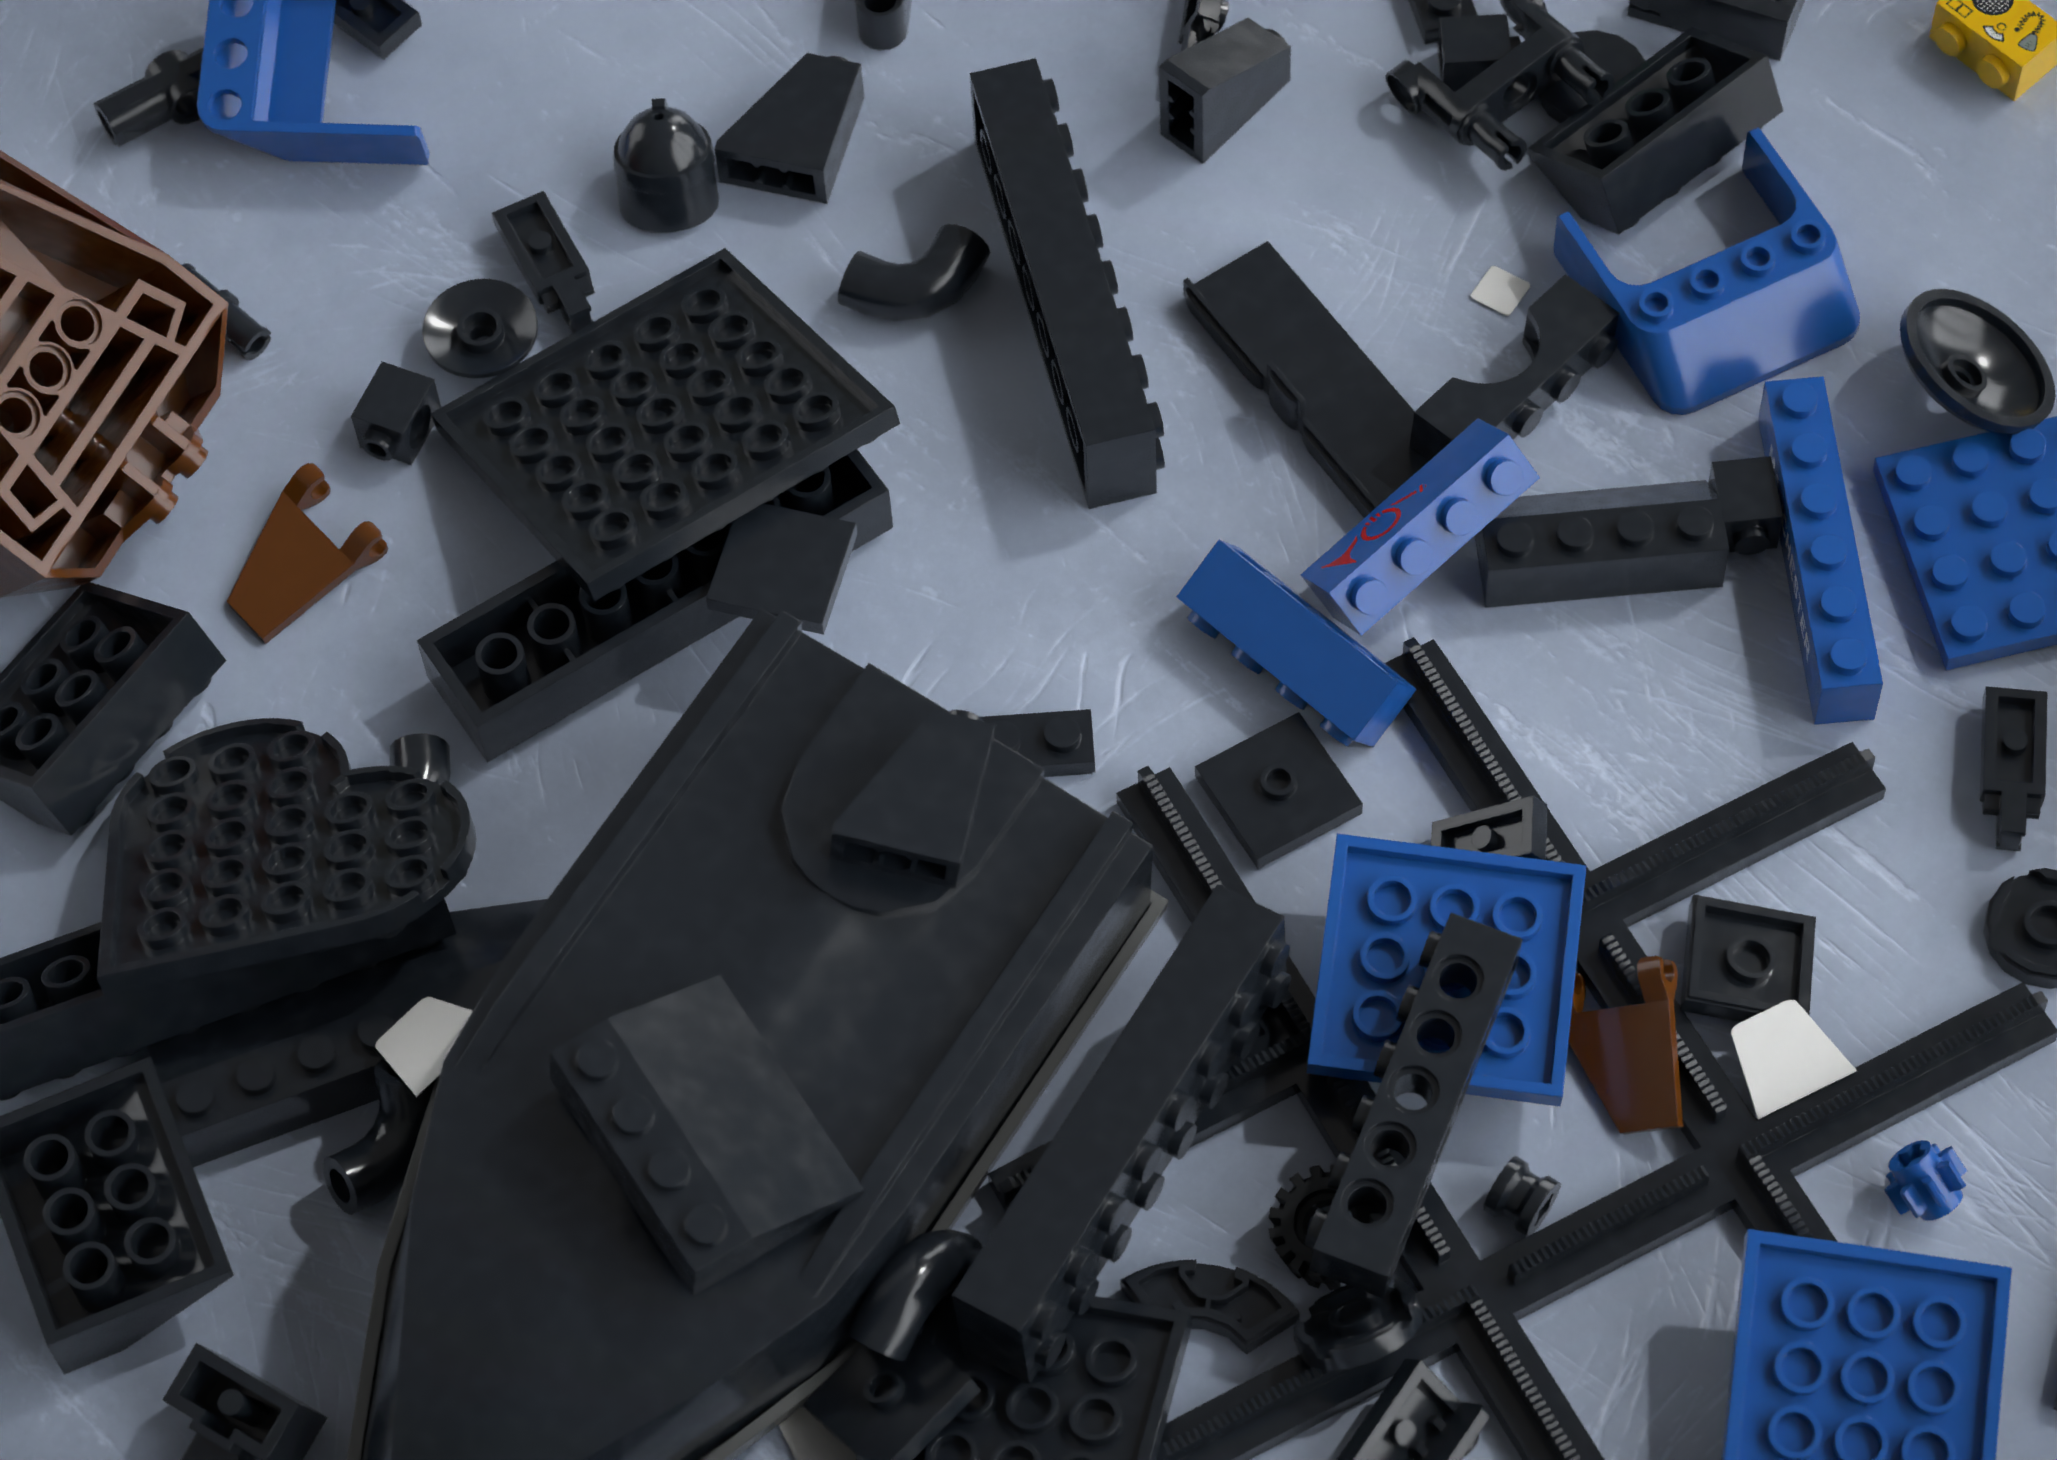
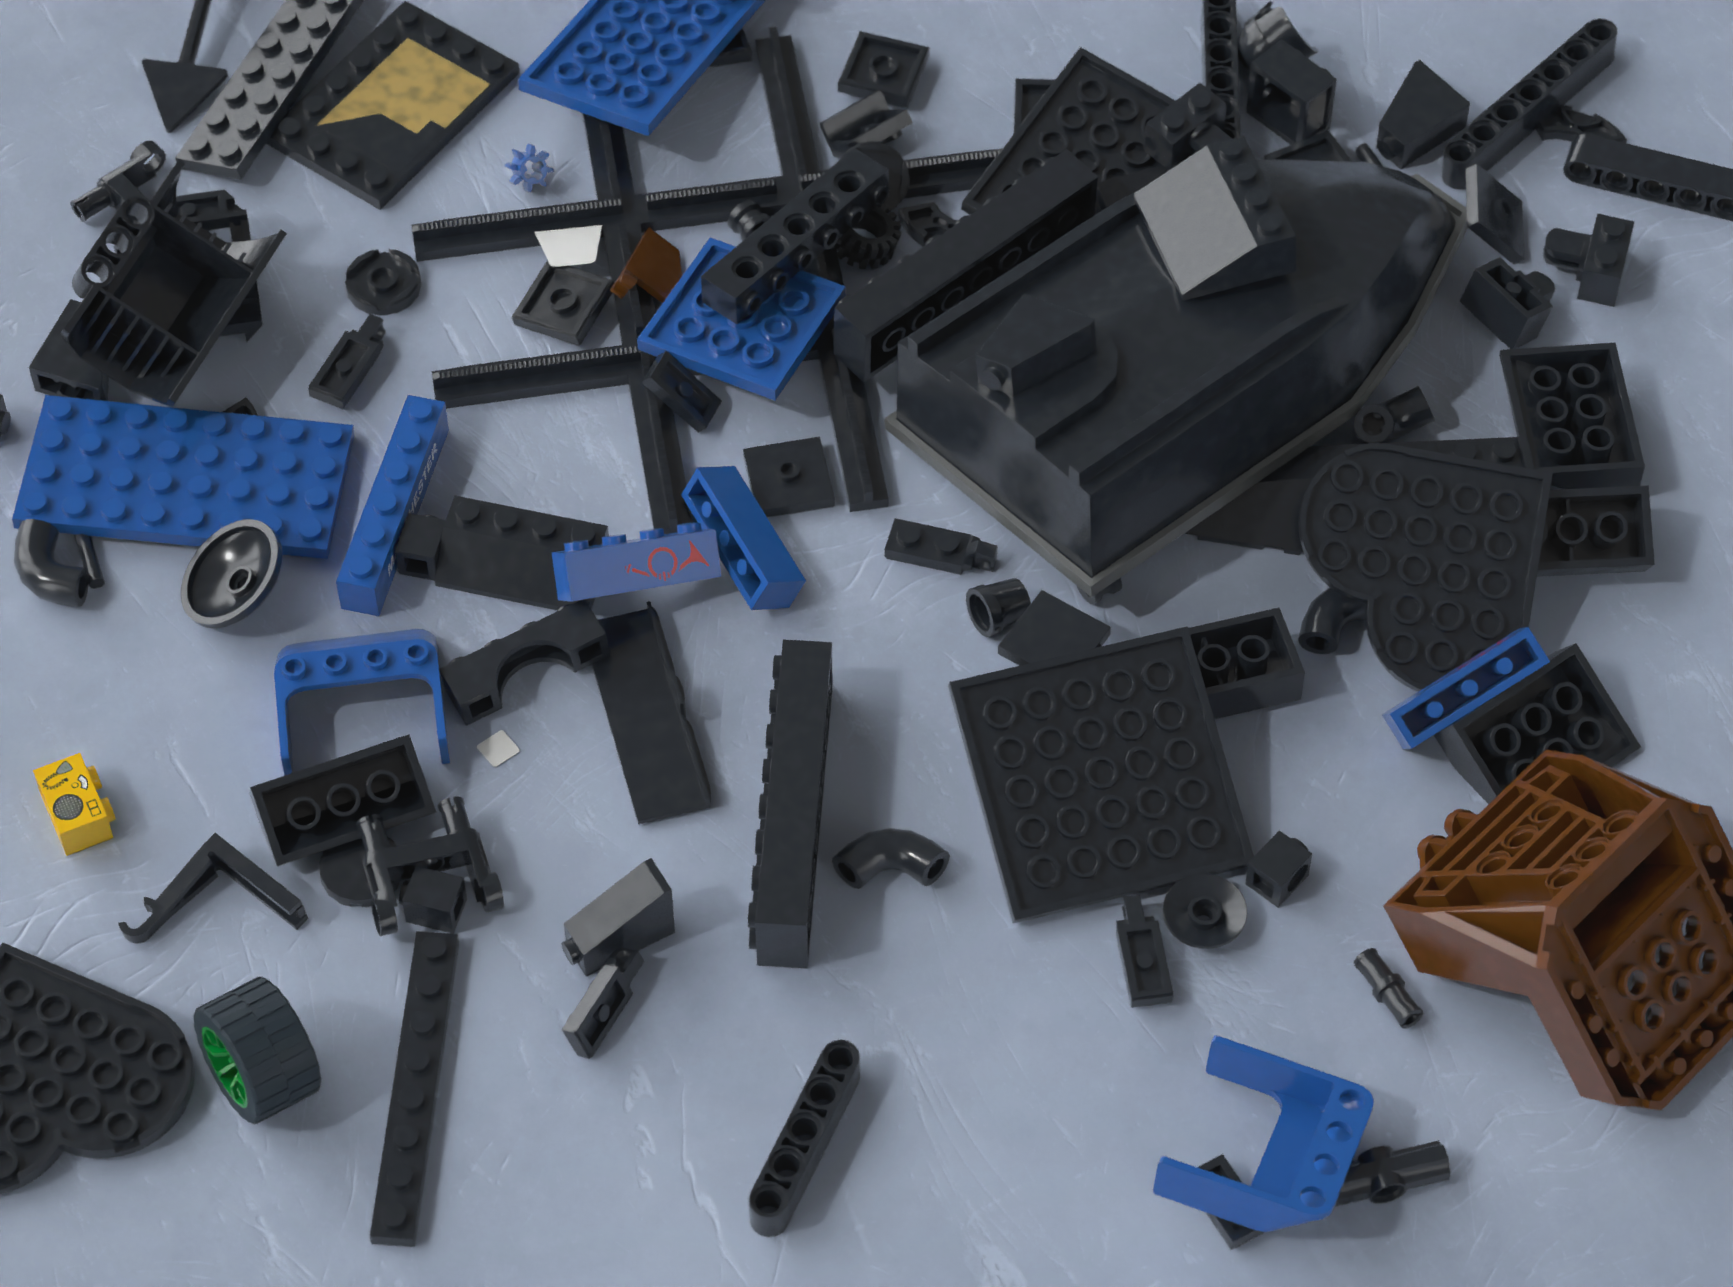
camera: 165 degrees left, 5 degrees down
(183, 696) = (1465, 688): none -> blue brick
(296, 561) = (1371, 798): reddish brown flag -> none
(422, 1041) = (1354, 422): white sticker -> none
(665, 170) = (1042, 1002): black helmet -> none
(795, 131) = (934, 992): black slope -> none
(901, 651) = (996, 605): none -> black piece

